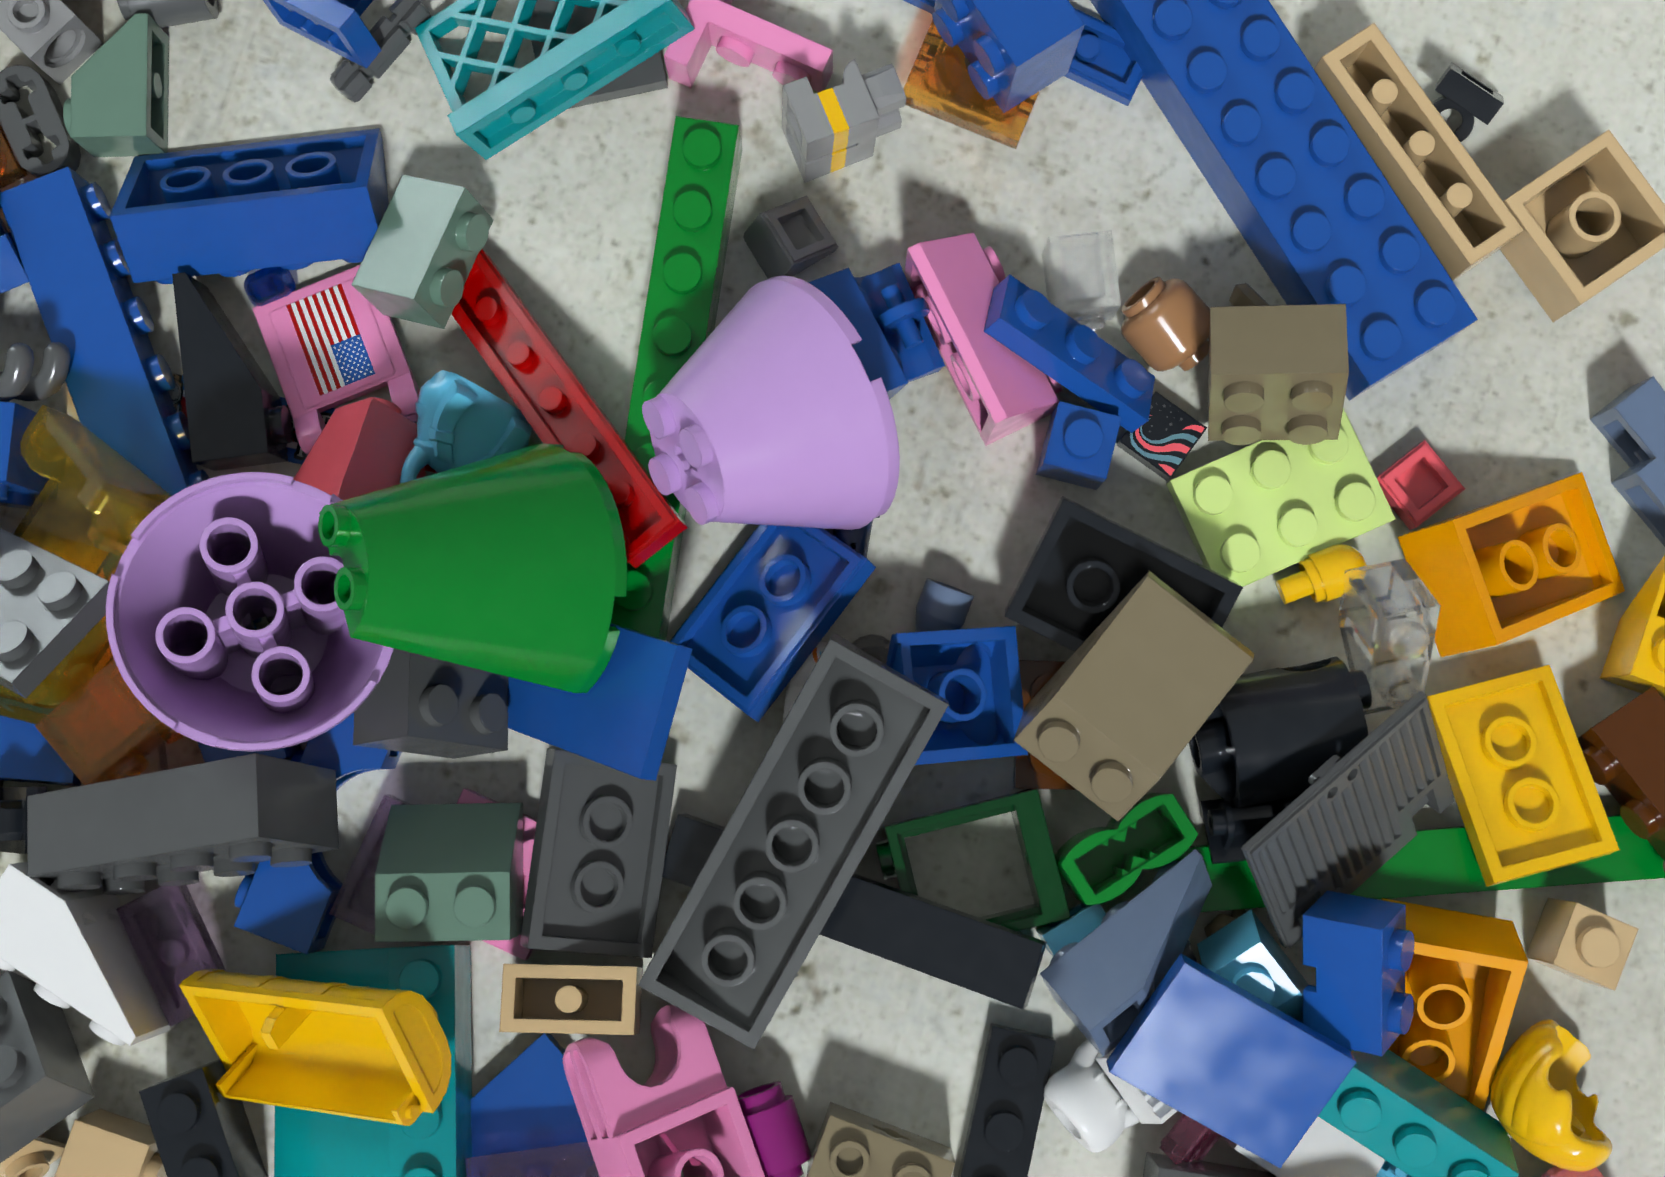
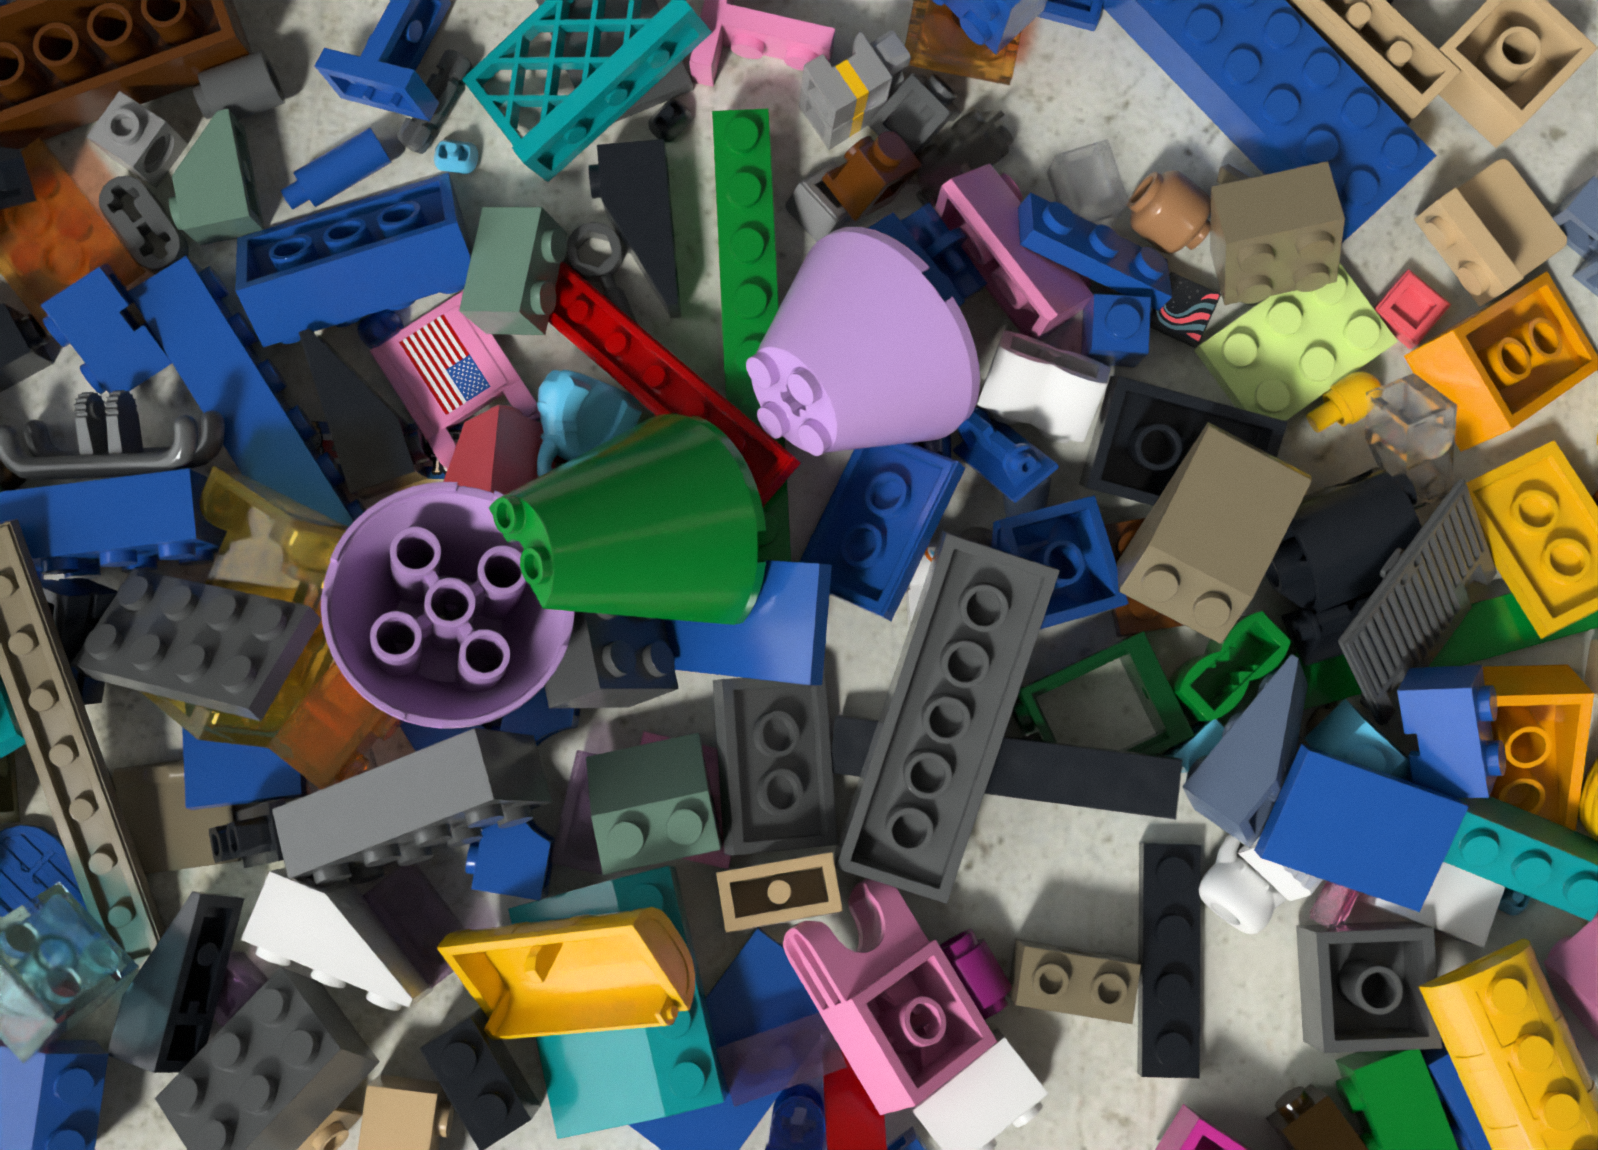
camera: 20 degrees left, 0 degrees up
(257, 103) = (337, 170): none -> blue cylinder
(391, 112) = (456, 156): none -> medium azure rock
(529, 270) = (607, 269): none -> dark grey piece
(579, 195) = (637, 201): none -> black slope
(635, 117) = (670, 120): none -> black rock
(842, 219) = (872, 174): none -> reddish brown brick
(906, 162) = (917, 111): none -> dark grey bracket
(921, 559) = (1002, 455): none -> blue hinge
(964, 205) = (973, 142): none -> clear smoke hinge
(983, 493) = (1043, 387): none -> white brick
(1528, 415) = (1492, 231): none -> tan bracket

